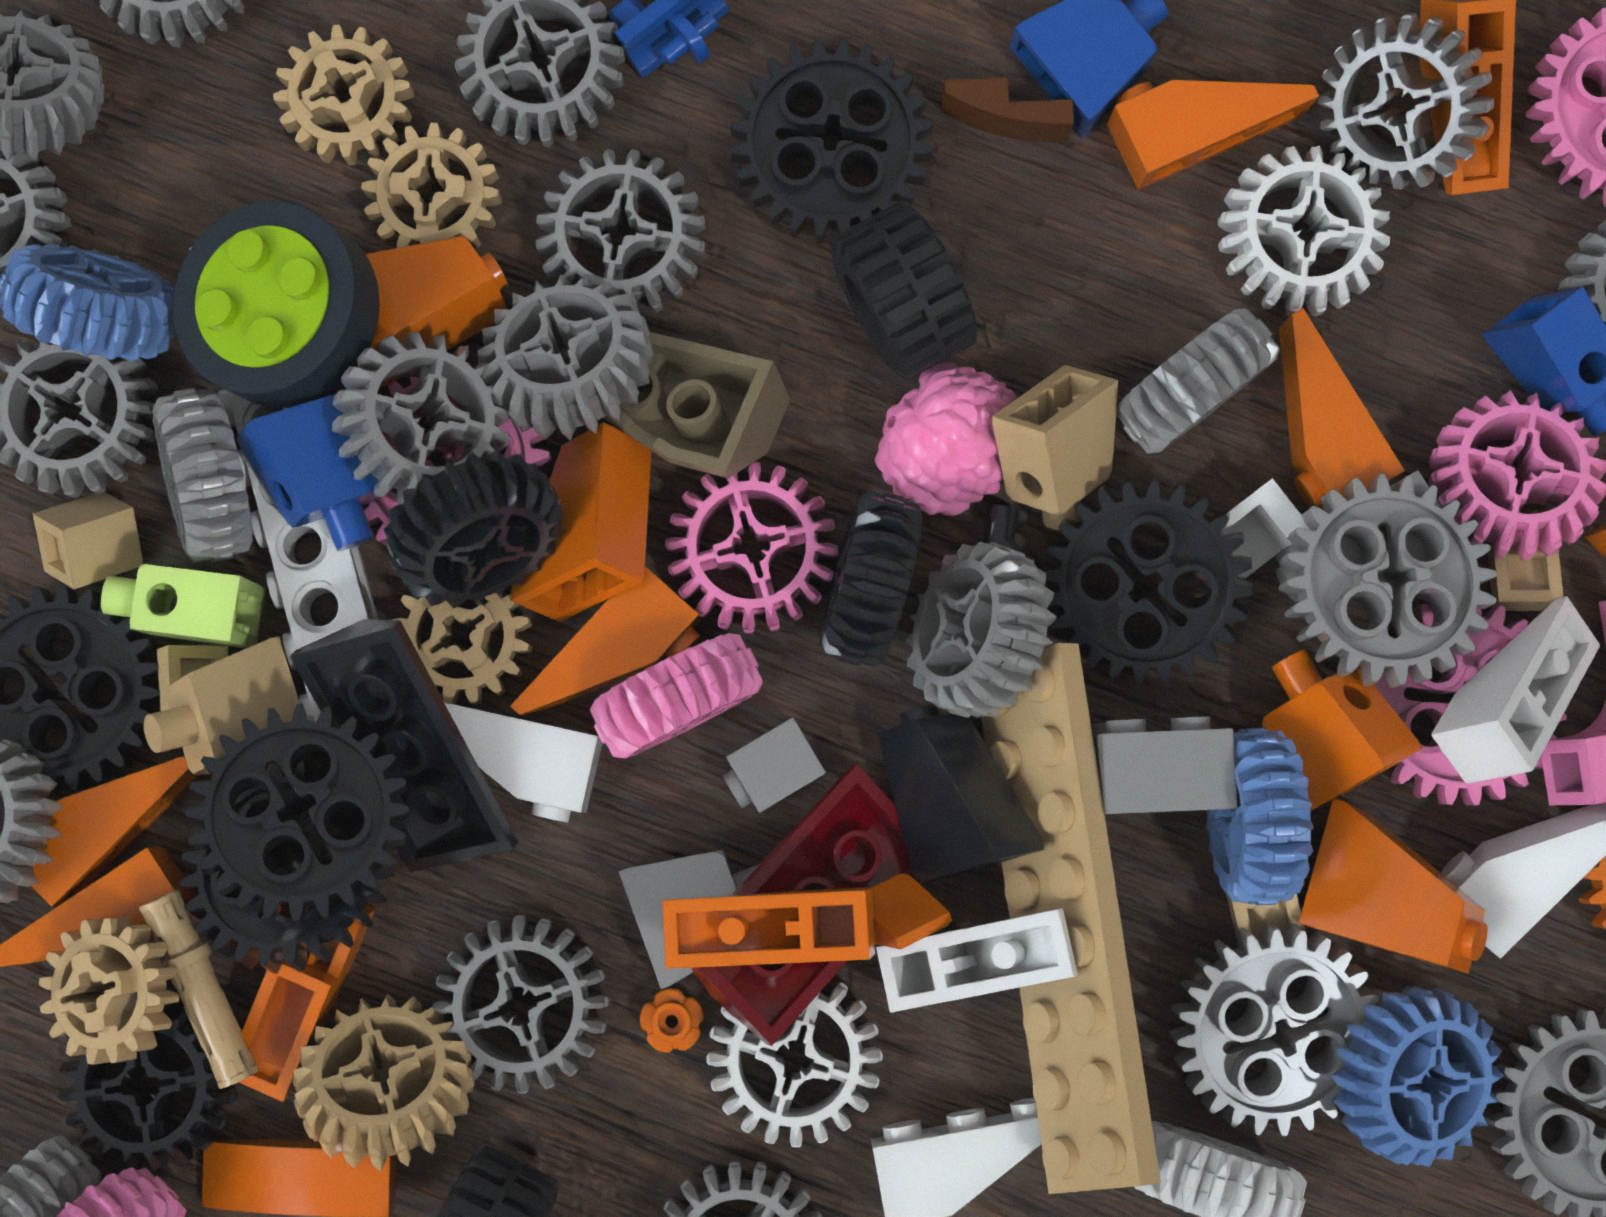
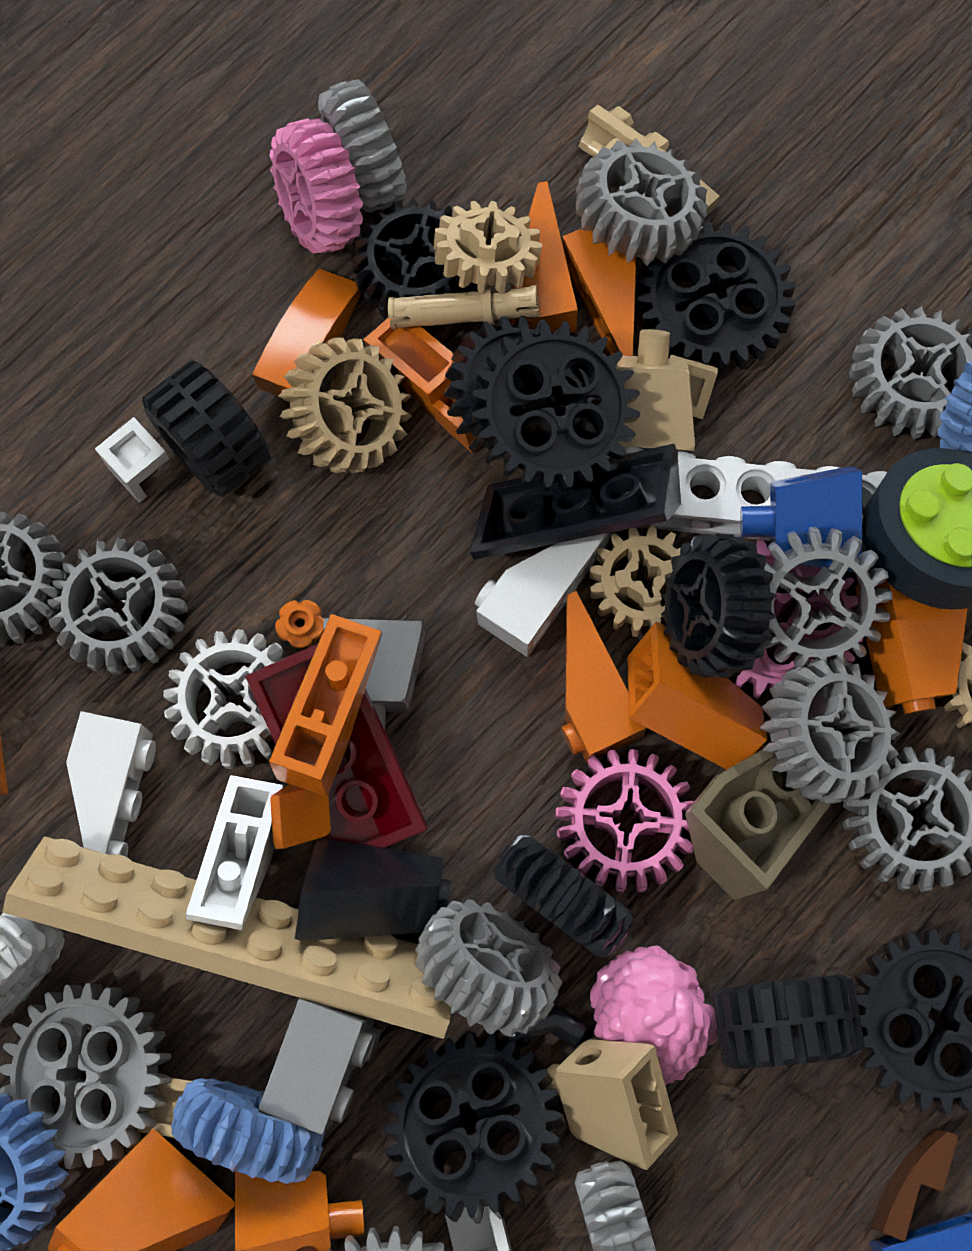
camera: 120 degrees right, 10 degrees down
(88, 539) = (817, 351): tan panel -> none
(202, 474) = (835, 436): light grey gear -> none
(208, 606) = (739, 397): yellowish green torso -> none
(511, 975) = (320, 516): light grey gear -> none
(676, 695) = (534, 714): bright pink gear -> none
(772, 767) = (451, 768): light grey brick -> none

